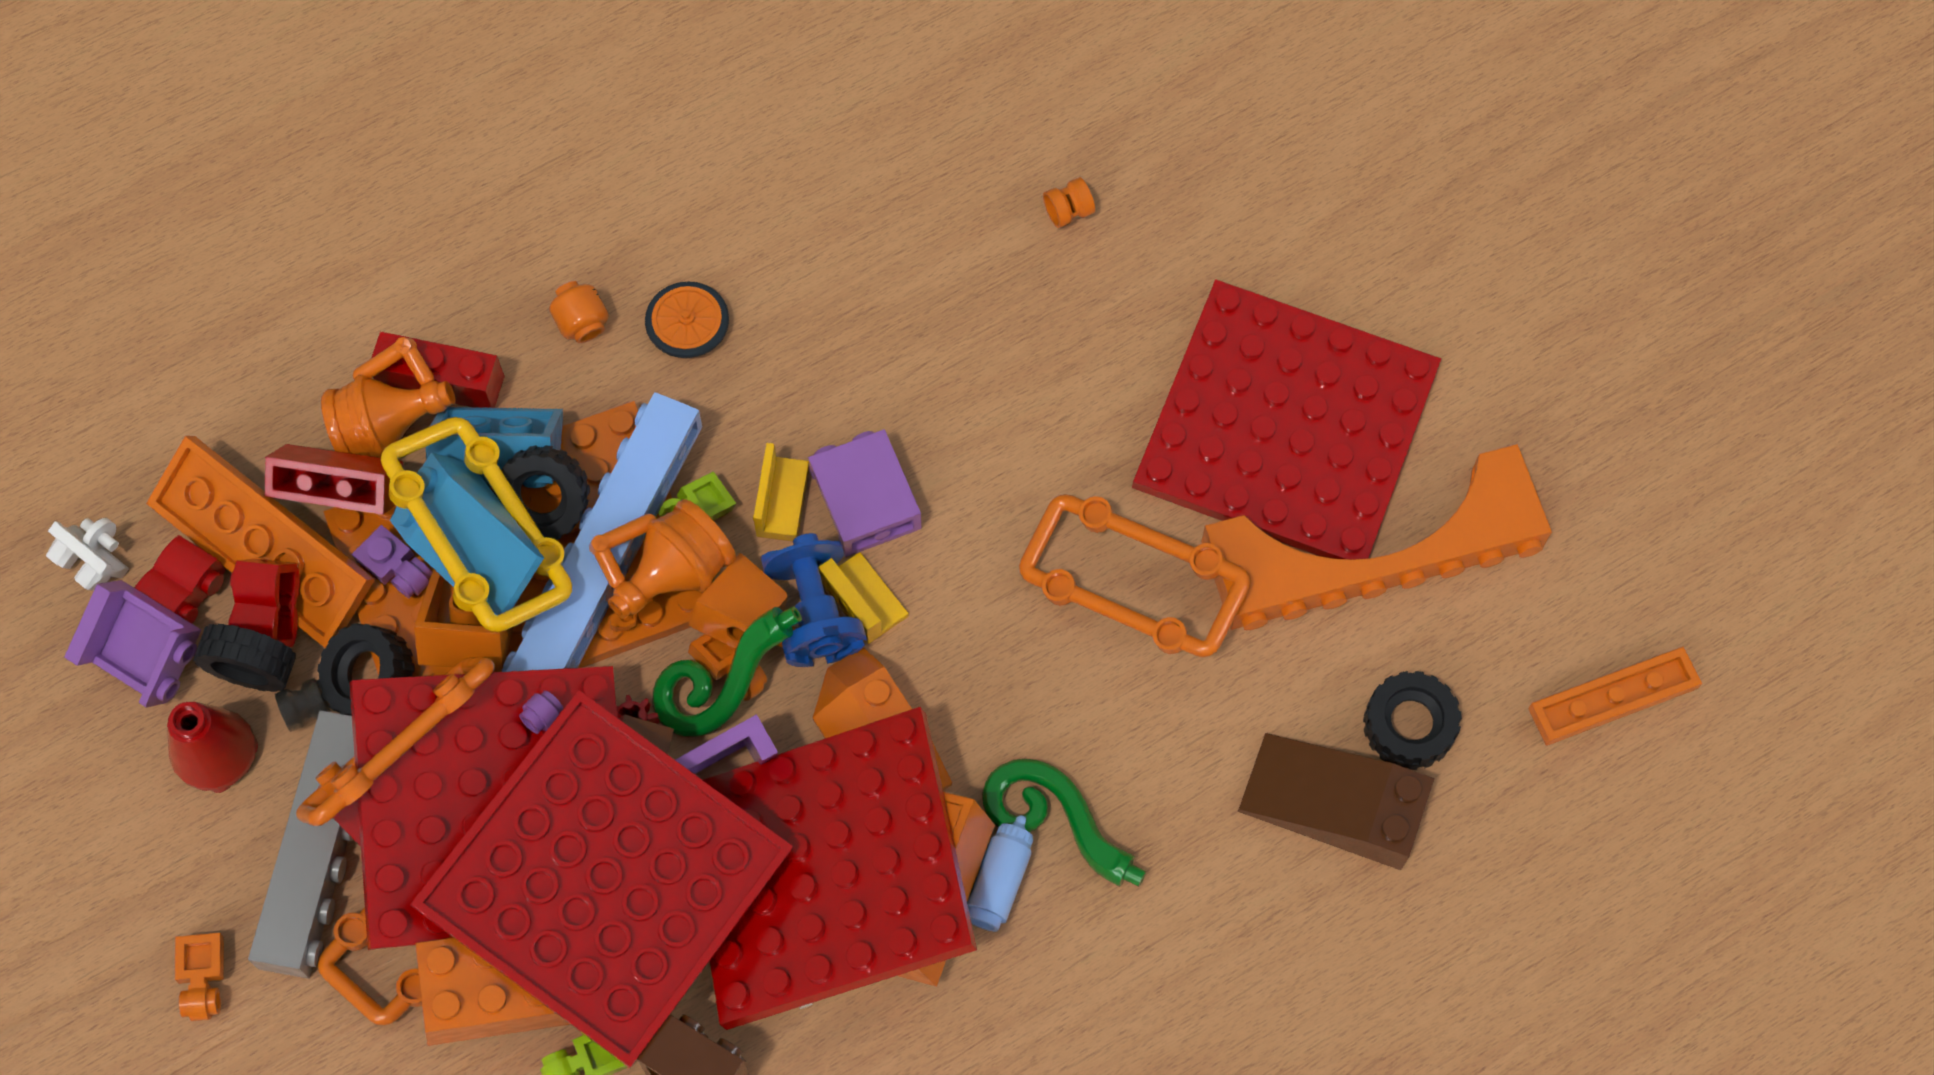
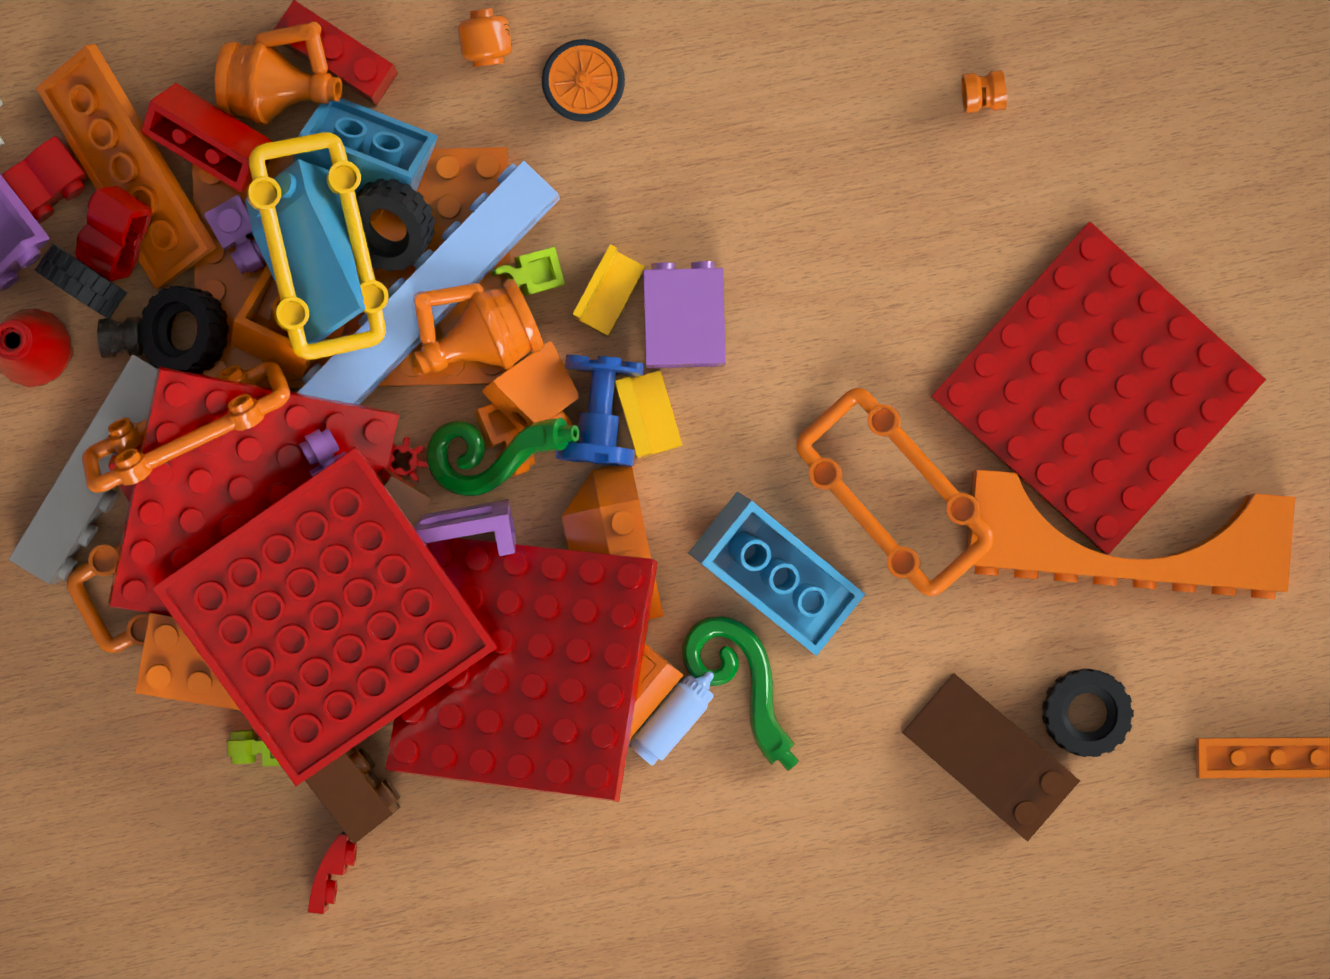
camera: 20 degrees right, 20 degrees up
(1048, 696) = (776, 573): none -> dark azure slope

